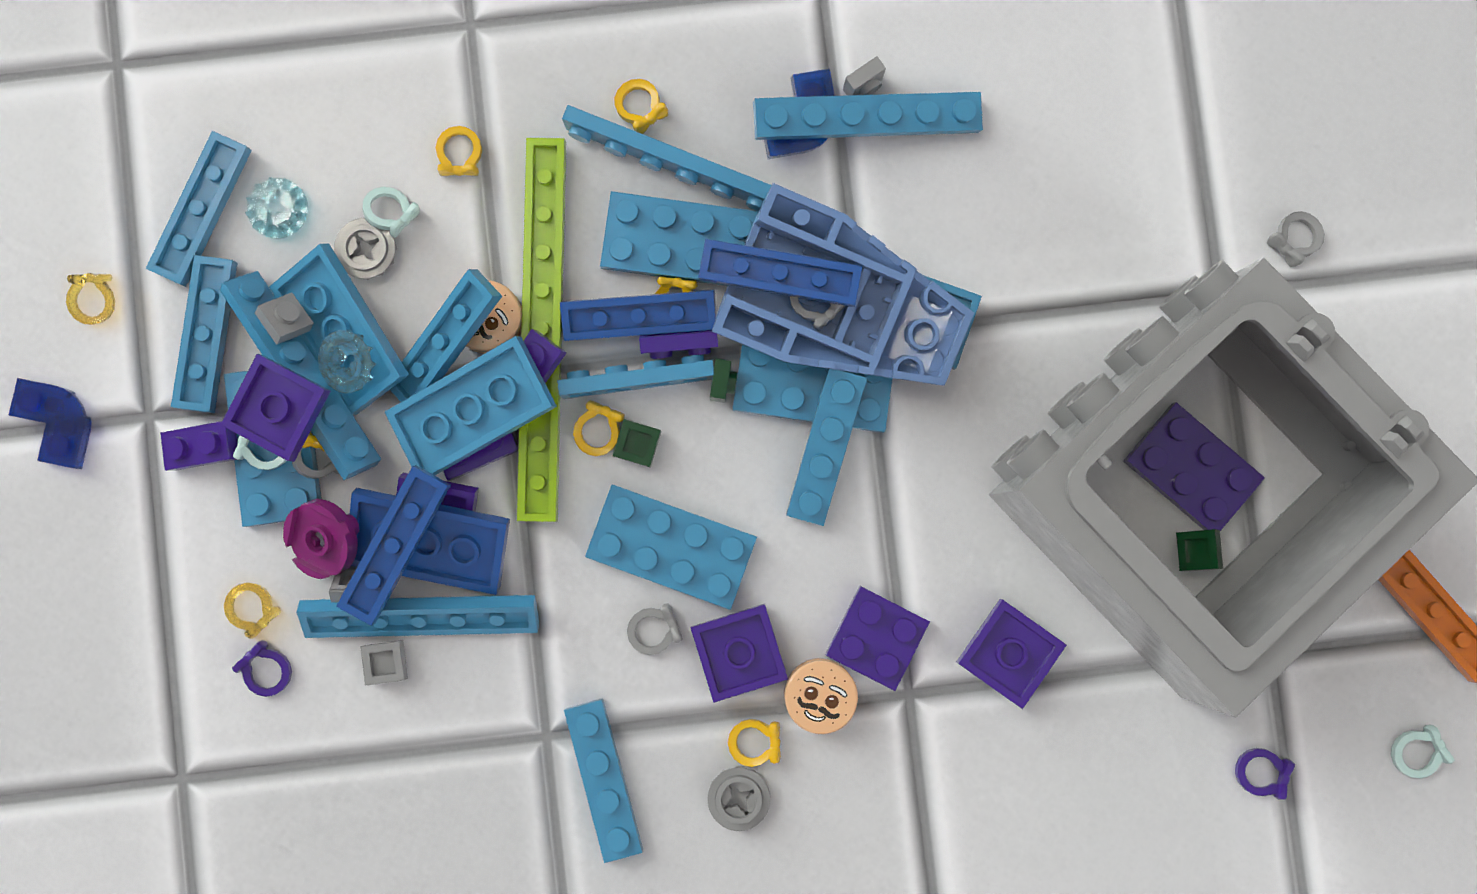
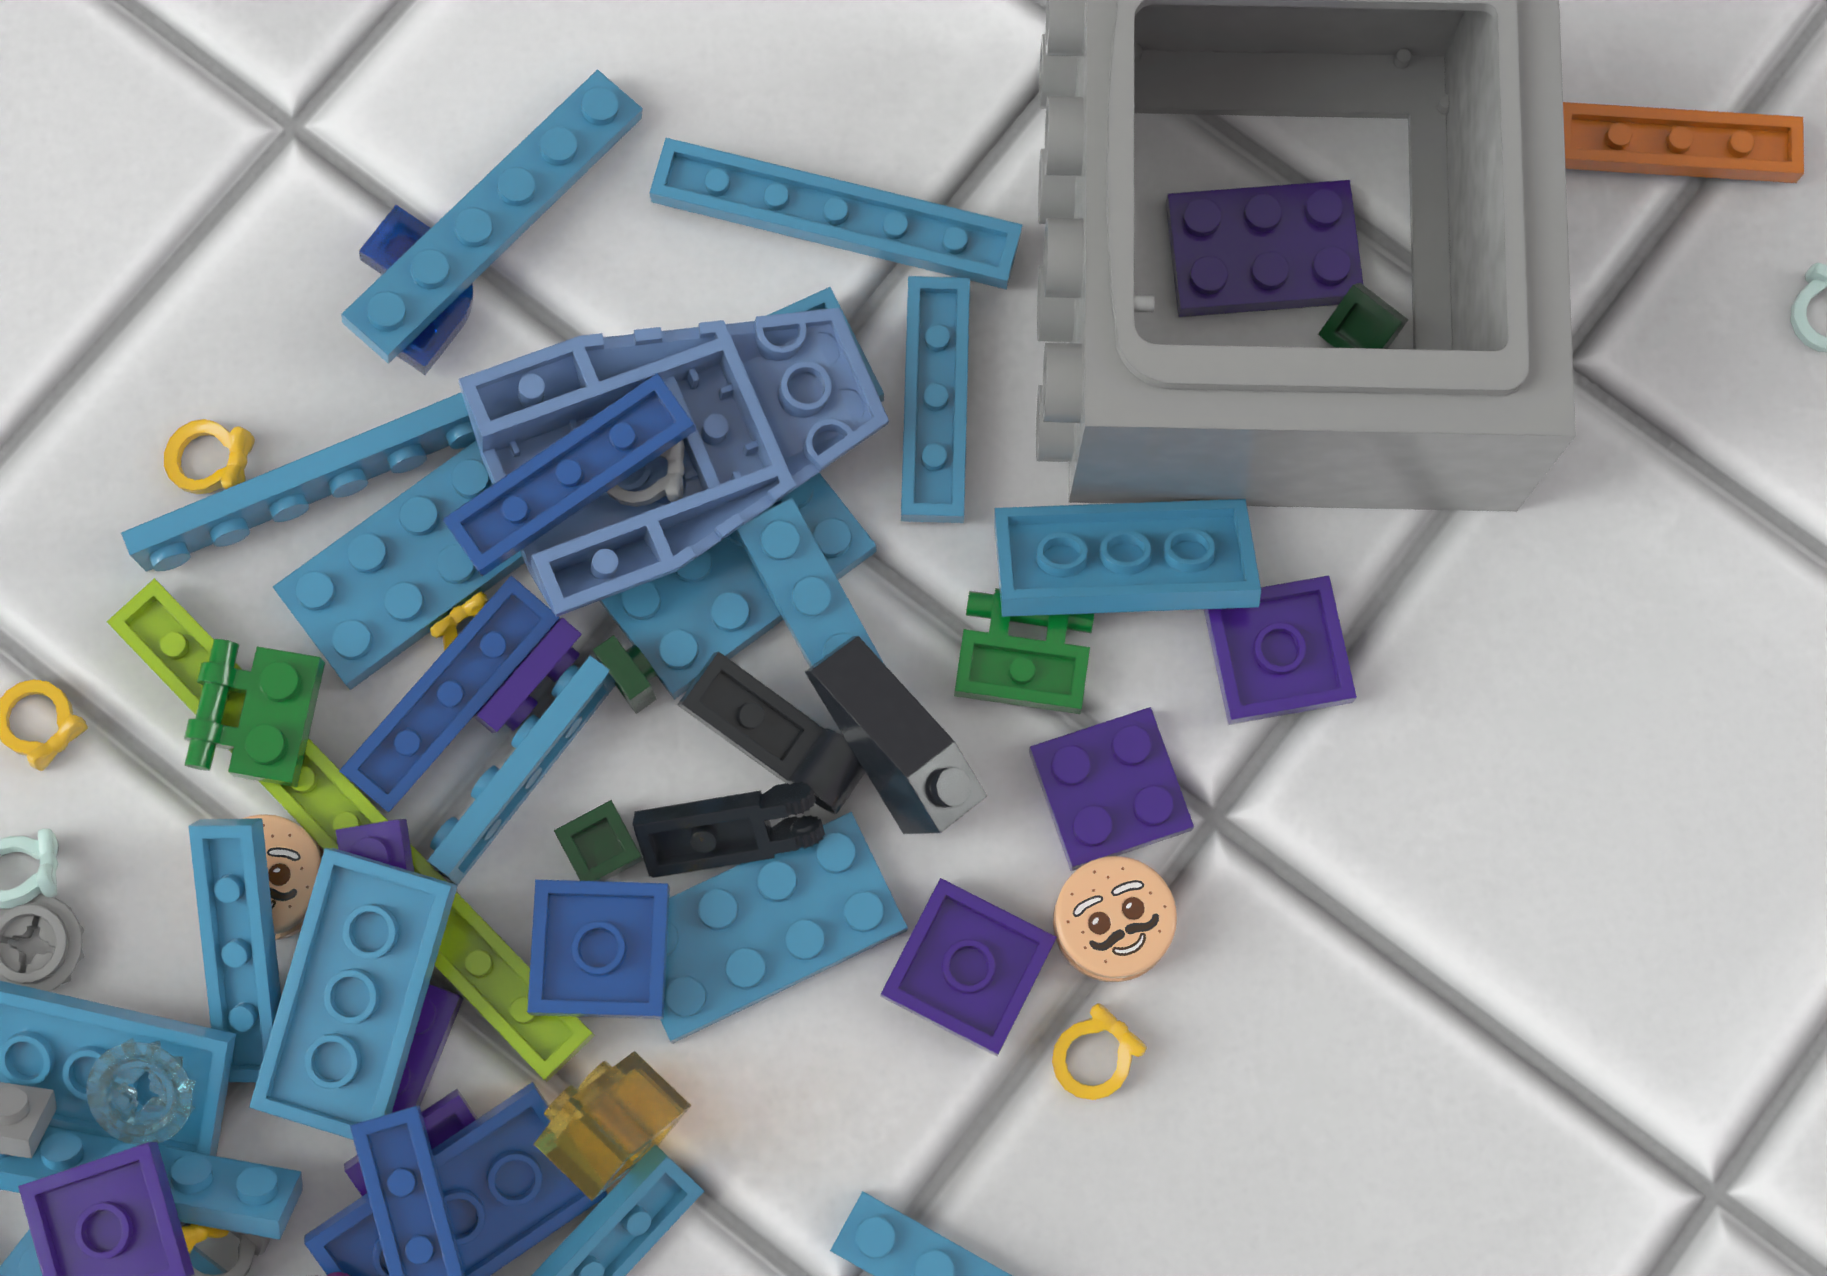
camera: 45 degrees left, 10 degrees down
(523, 571) = (609, 1123): none -> clear yellow brick
(553, 252) = (273, 719): none -> green plate
(590, 491) = (599, 949): none -> blue plate
(614, 418) = (507, 857): yellow piece -> none
(673, 634) = (834, 1013): light grey piece -> none
(696, 493) = (726, 830): none -> black hinge
(733, 816) = (1171, 1123): light grey gear -> none
(758, 471) = (773, 732): none -> black plate
(804, 529) = (895, 740): none -> black slope
(865, 79) = (449, 176): light grey plate -> none
(892, 550) = (1020, 668): none -> green plate
(977, 392) = (935, 400): none -> dark azure plate
(986, 548) = (1125, 557): none -> dark azure plate
(1019, 264) = (835, 213): none -> dark azure plate
(1284, 767) = (1708, 472): dark purple piece -> none

